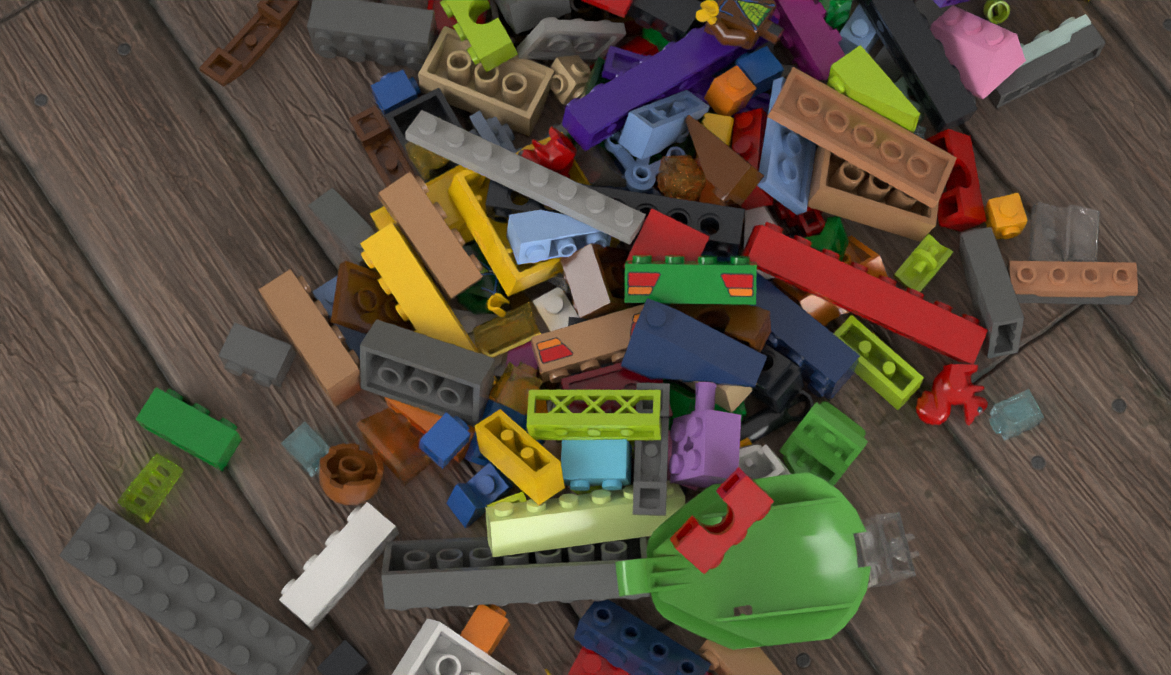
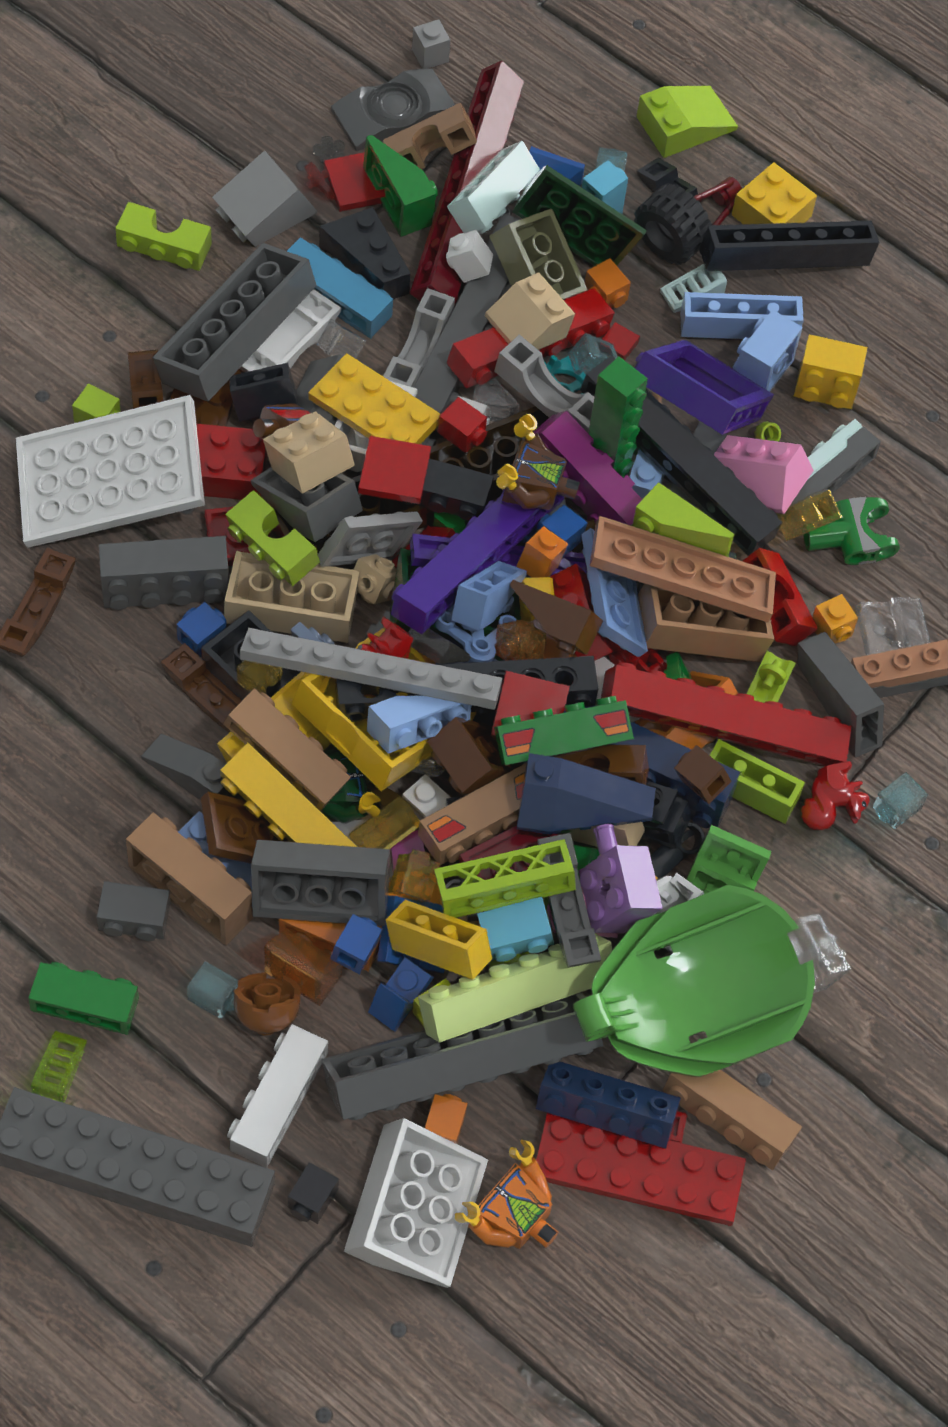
camera: 25 degrees left, 10 degrees down
(707, 544) = (678, 927): red arch -> none
(817, 352) = (702, 774): none -> reddish brown brick
(1008, 104) = (809, 514): none -> clear yellow slope
(1050, 129) = (853, 534): none -> green connector

